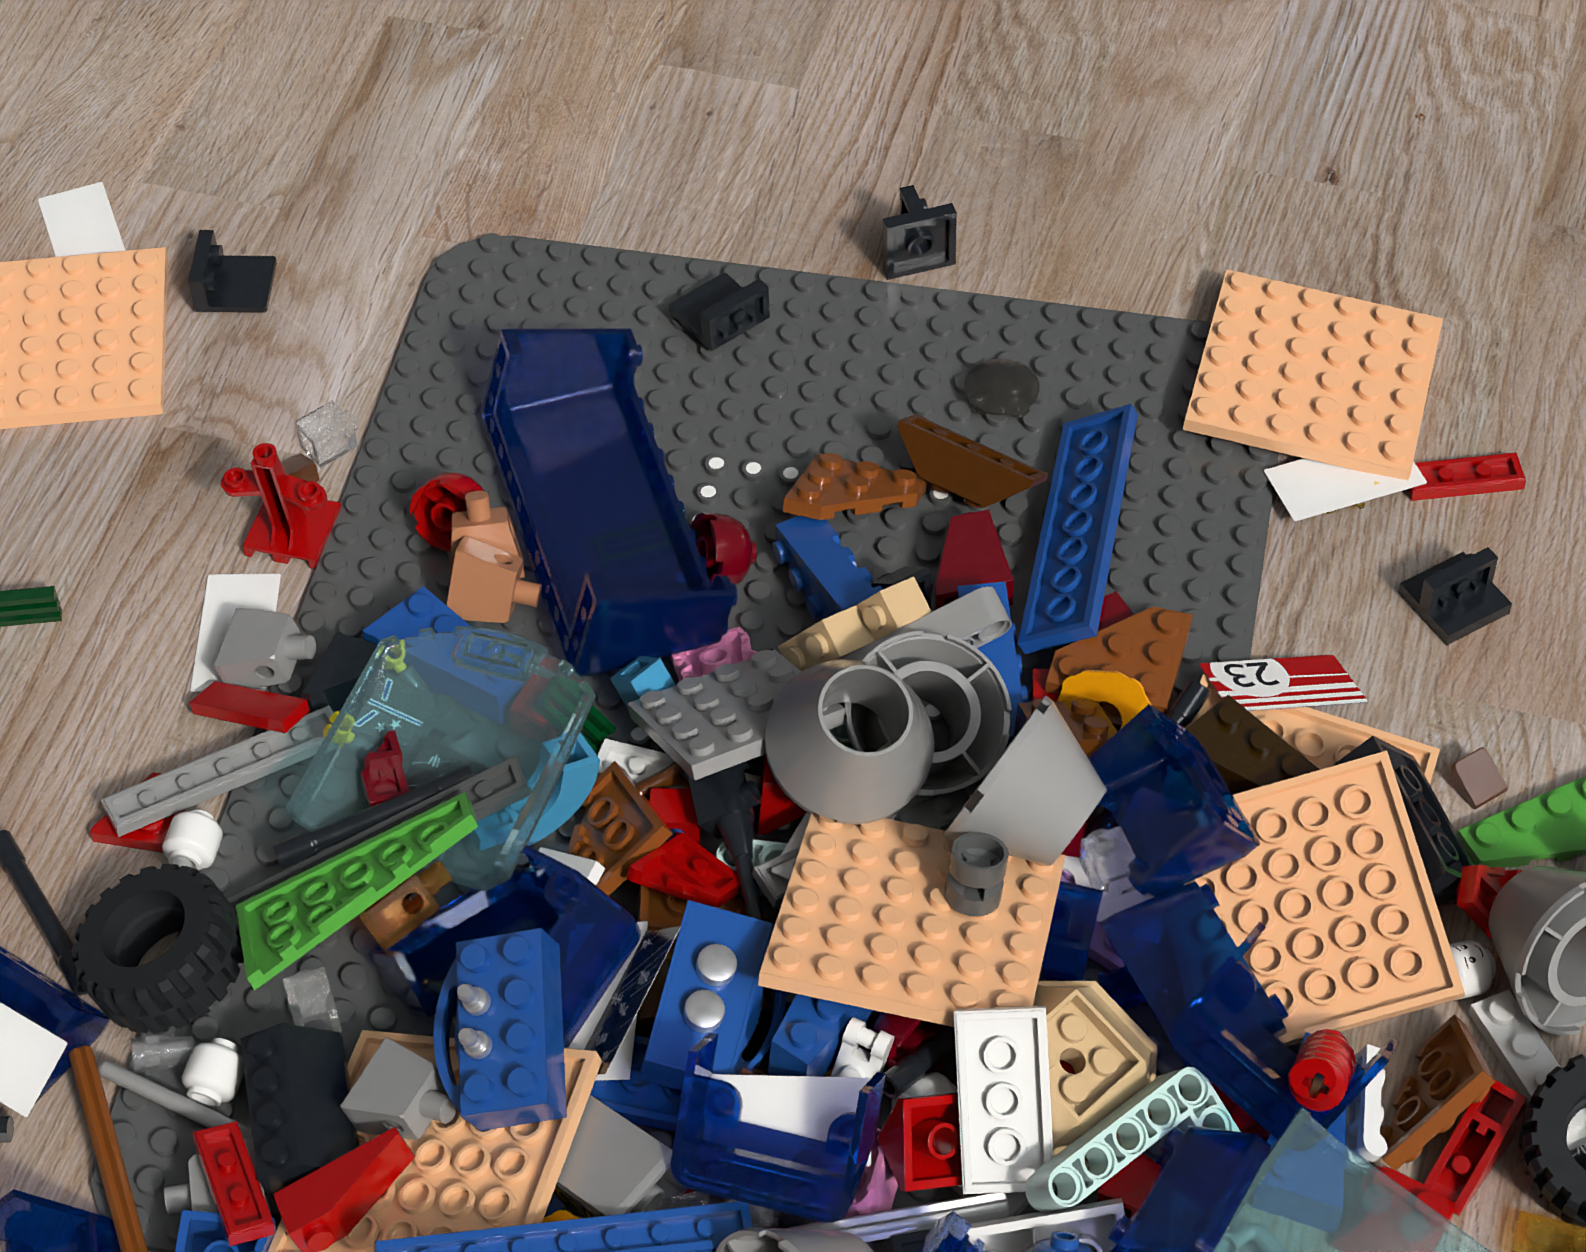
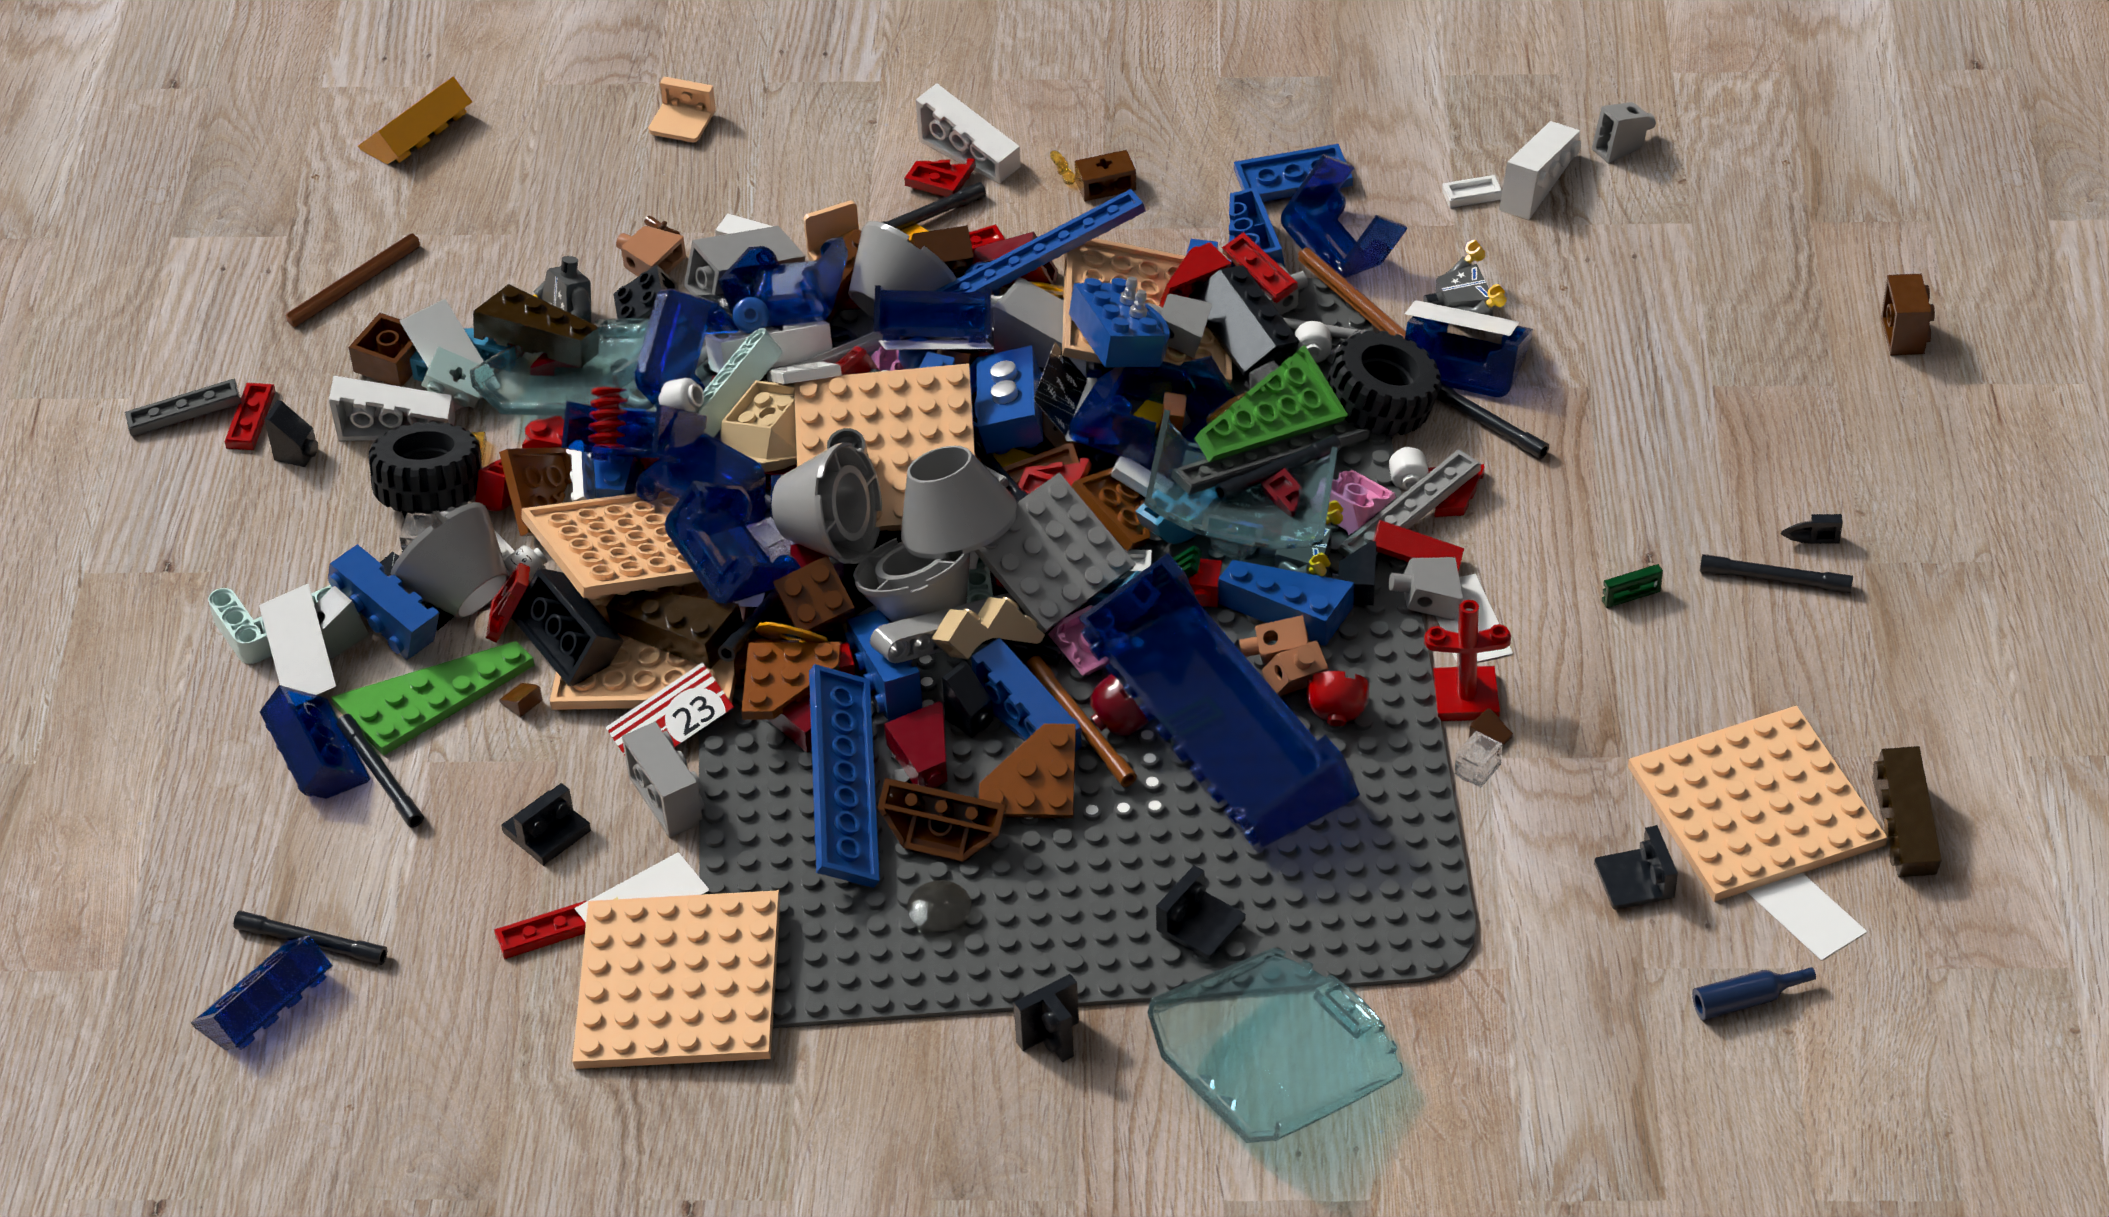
camera: 165 degrees right, 5 degrees down
(199, 148) = (1745, 991): none -> dark blue piece
(268, 795) = (1359, 498): none -> bright pink slope
(685, 165) = (1273, 1044): none -> clear light blue windscreen
(745, 508) = (1115, 763): none -> dark orange piece
(1202, 1099) = (682, 394): none -> white head
(1303, 587) = (663, 778): none -> light grey brick

